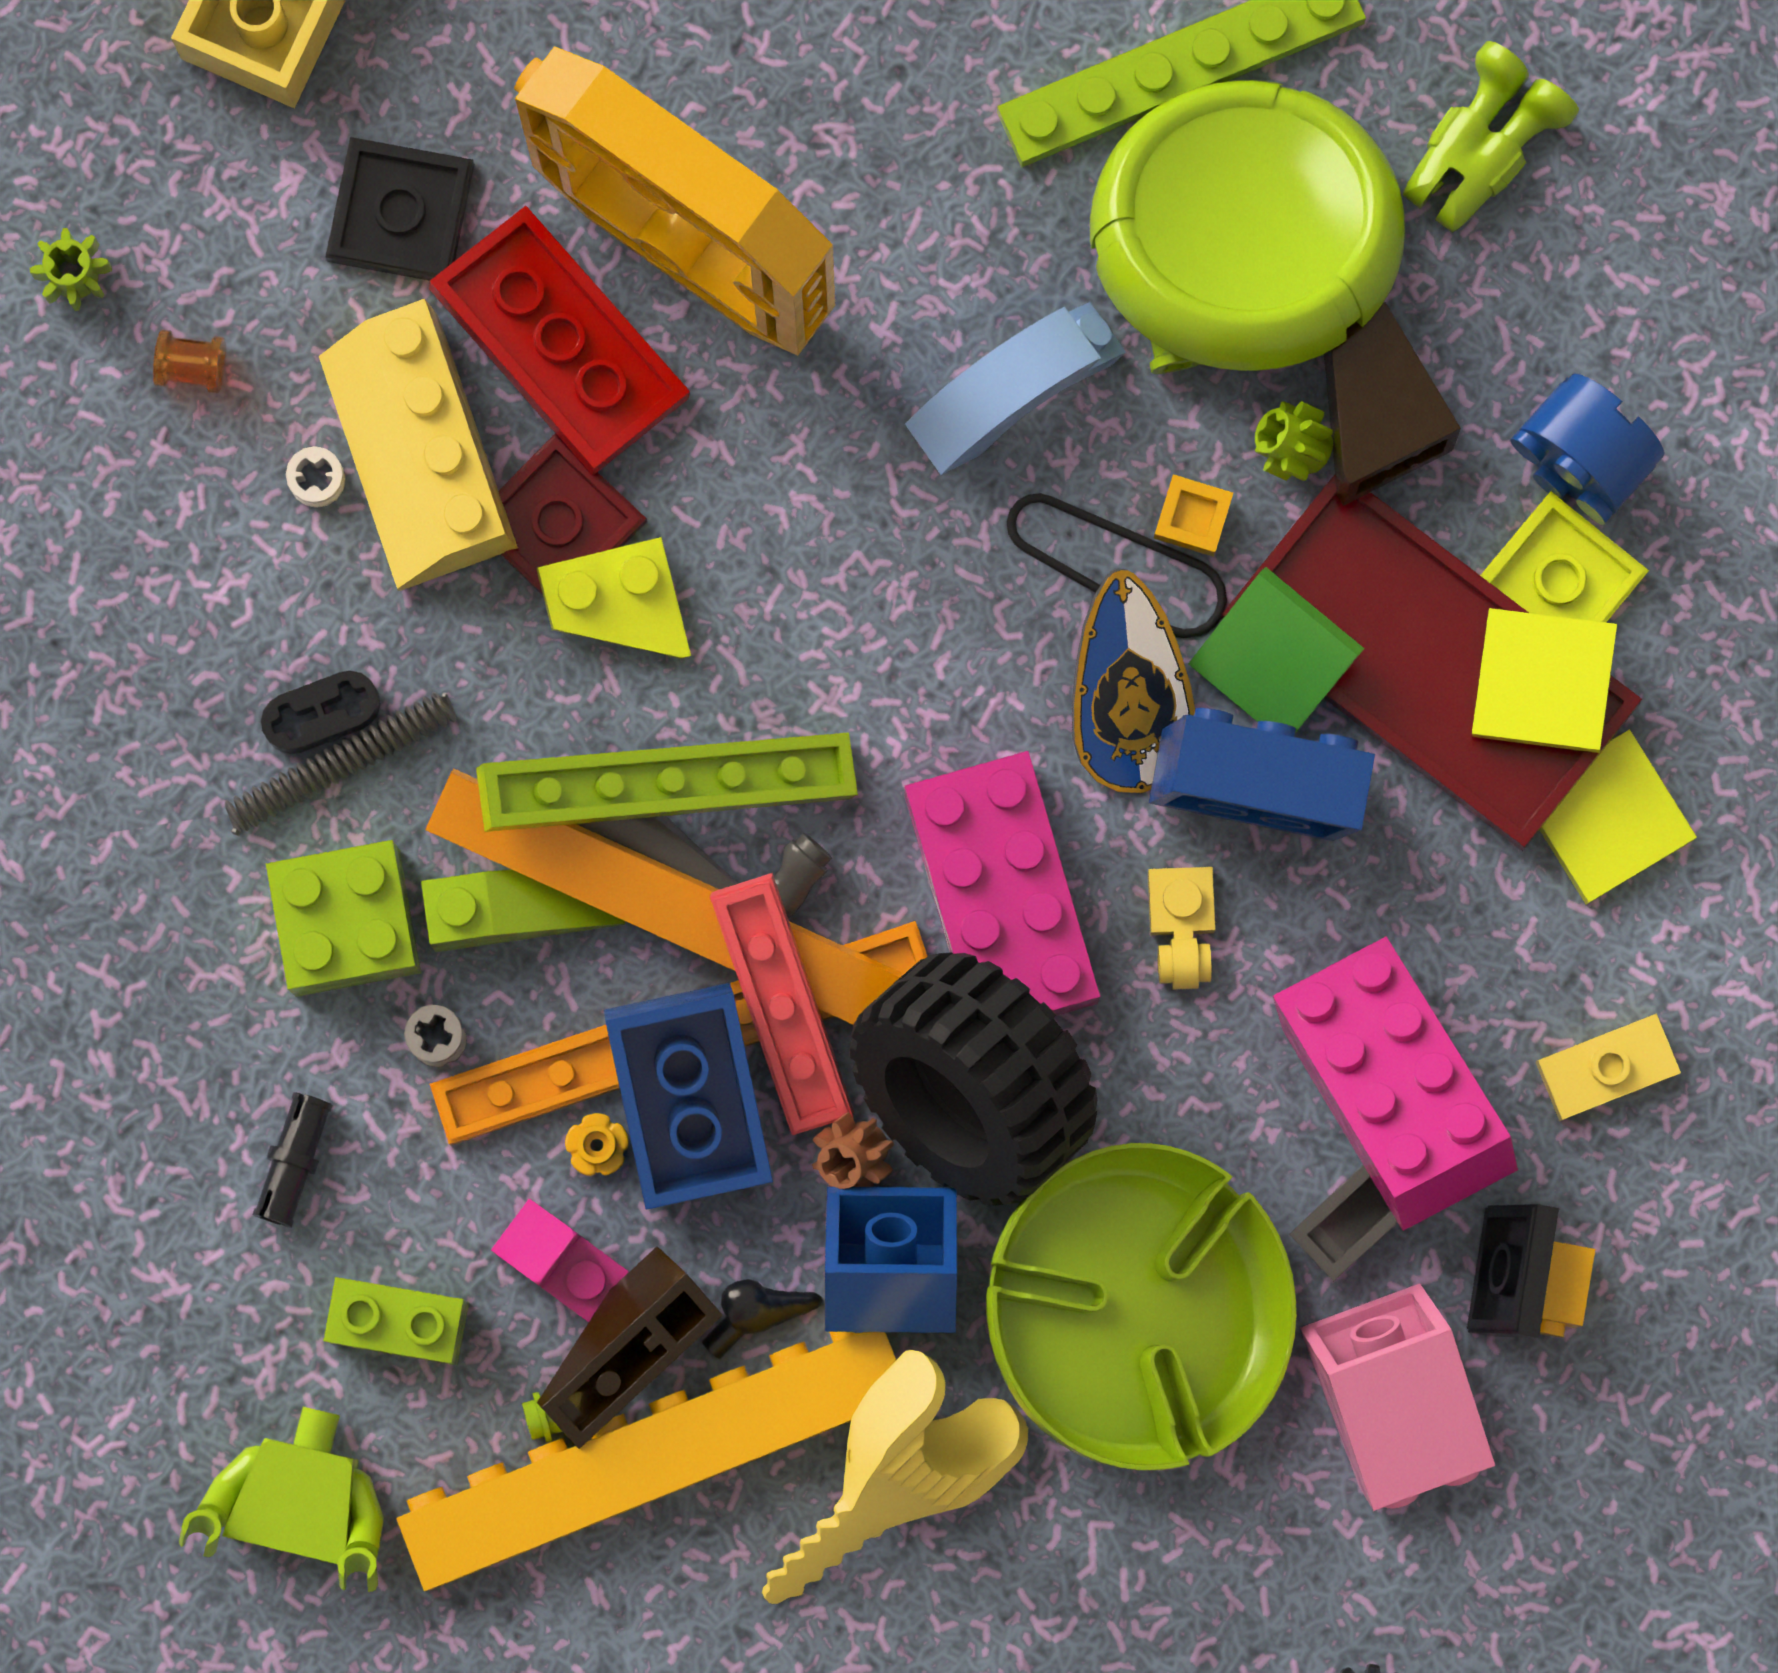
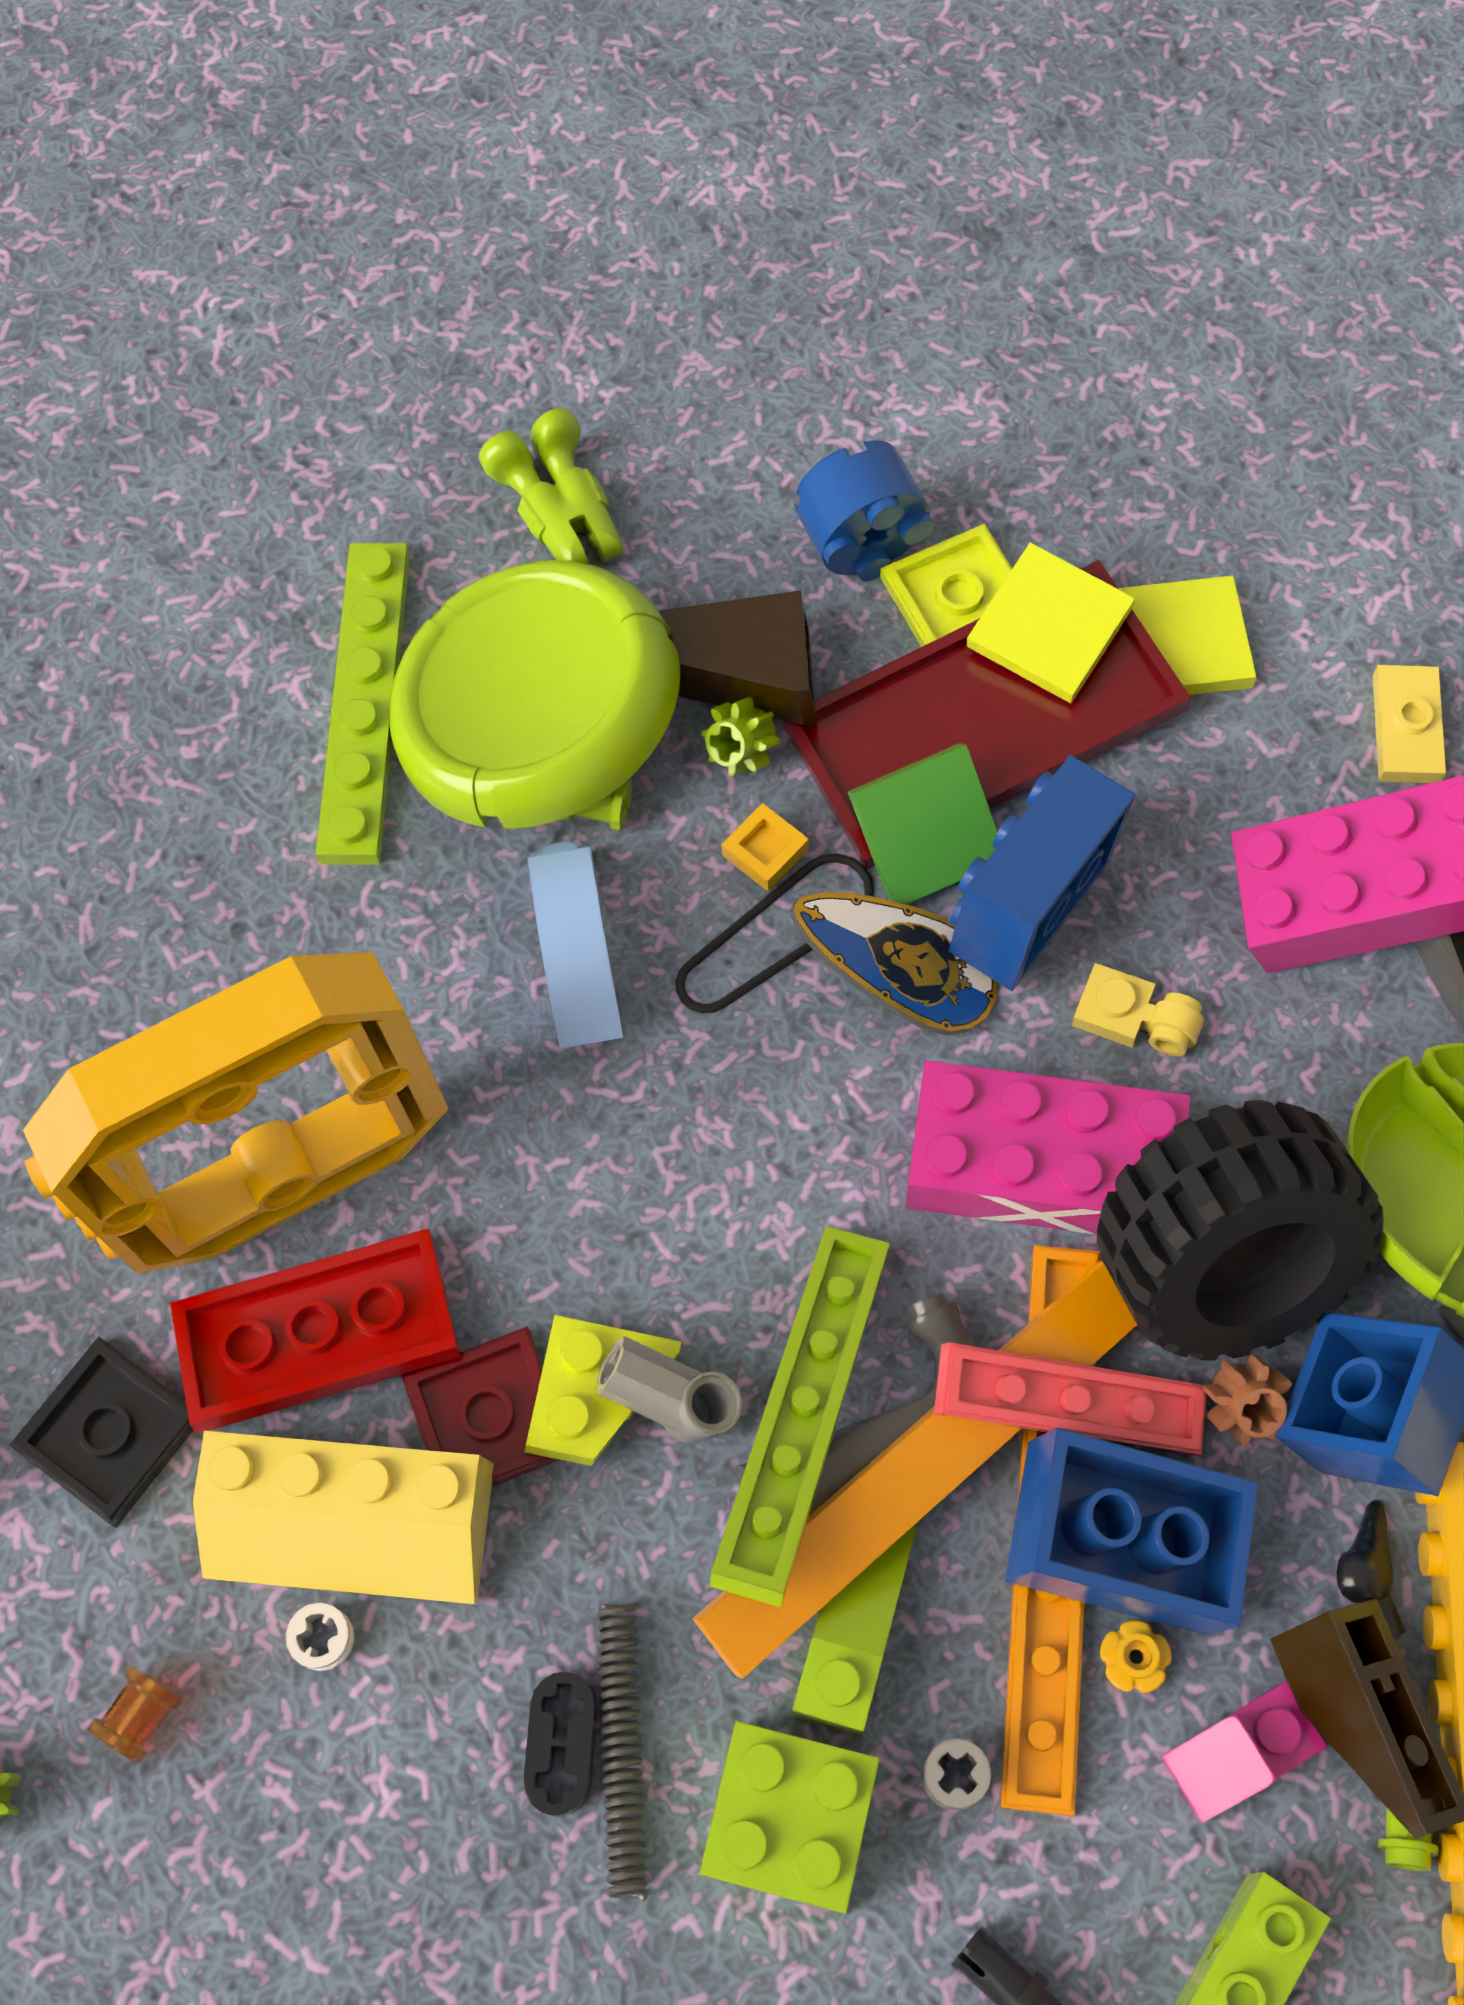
camera: 60 degrees left, 15 degrees down
(636, 660) = (664, 1391): none -> light grey piece

